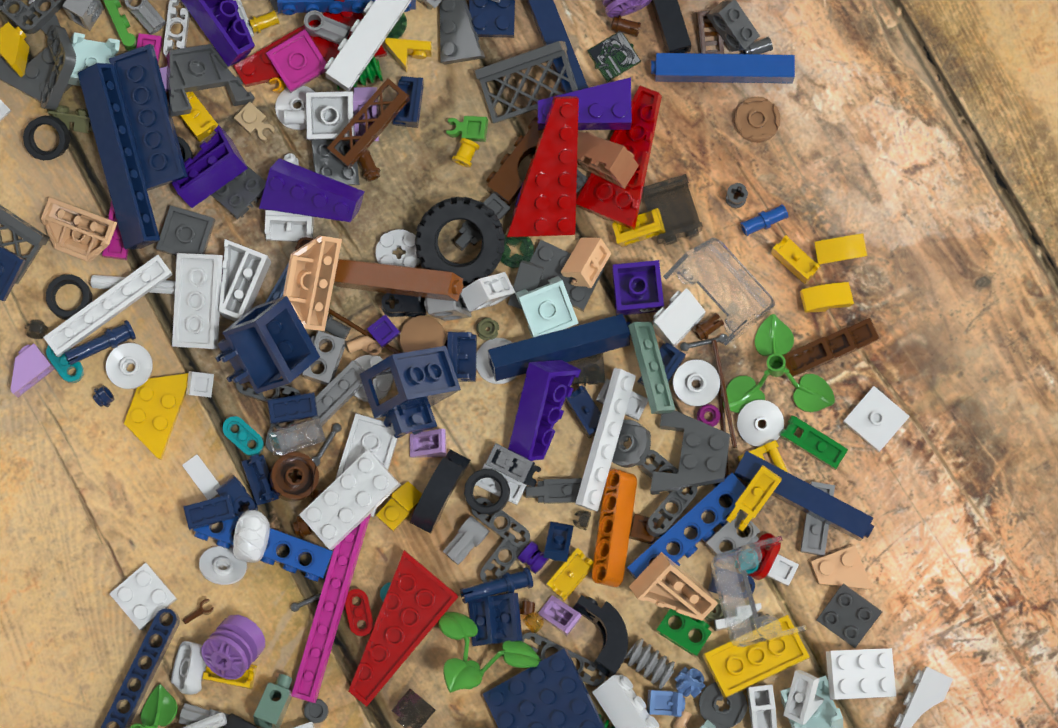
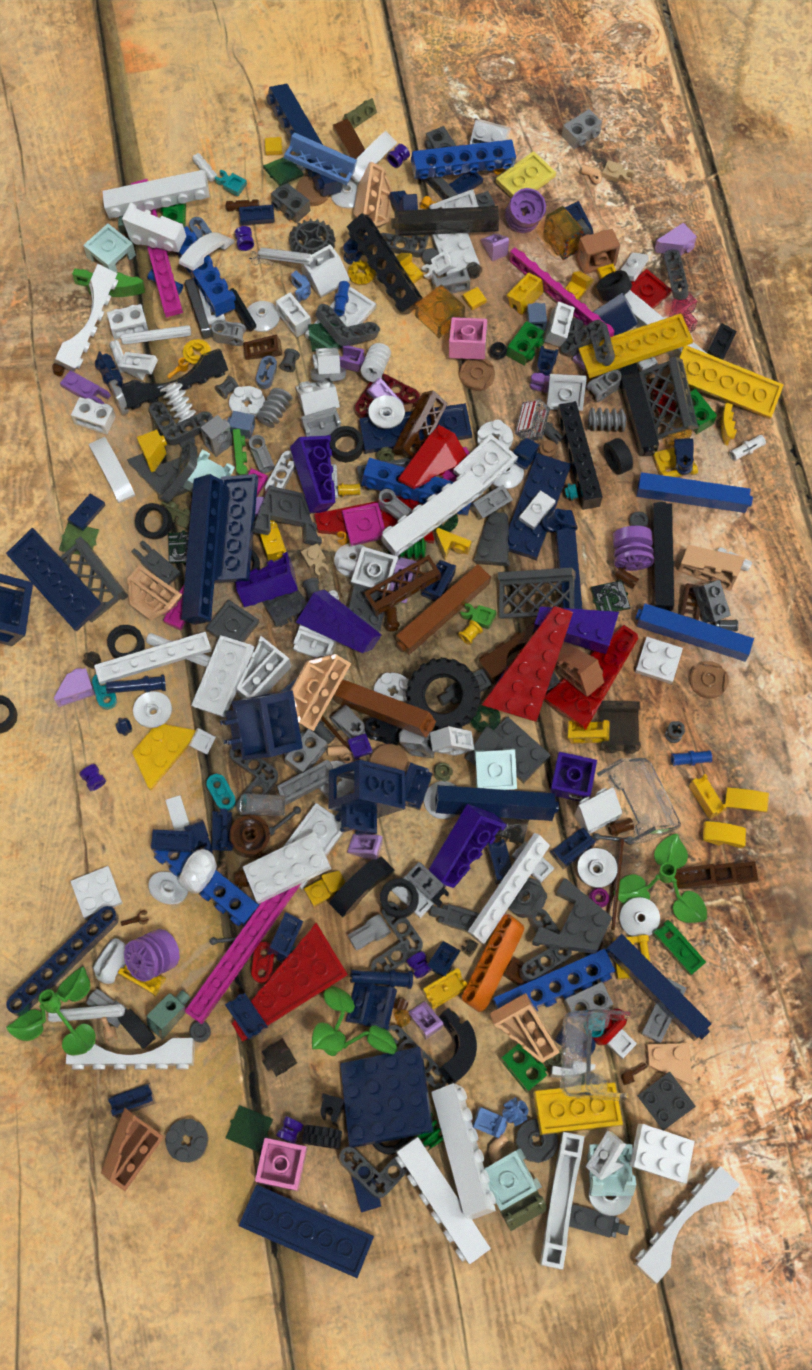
camera: 15 degrees right, 10 degrees down
(69, 188) = (156, 564): none -> dark grey hinge
(87, 158) = (178, 547): none -> piece
(90, 468) = (92, 777): none -> dark purple wheel
(262, 159) = (311, 586): none -> dark grey bush
(292, 408) = (267, 782): dark blue plate -> none
(358, 305) = (347, 721): none -> light grey piece
(362, 678) = (246, 1016): none -> dark blue hinge
(374, 577) = (285, 936): none -> dark blue hinge
(424, 135) = (442, 610): none -> dark orange brick
(586, 262) = (539, 744): light nougat hinge -> none
(650, 663) = (487, 1084): light grey piece -> none
(651, 367) = (564, 842): sand green plate -> none
(693, 114) = (659, 660): none -> white plate
(755, 495) = (618, 972): yellow hinge -> none
(800, 603) = (628, 1078): none -> reddish brown hand
(876, 419) = (736, 945): white plate -> none

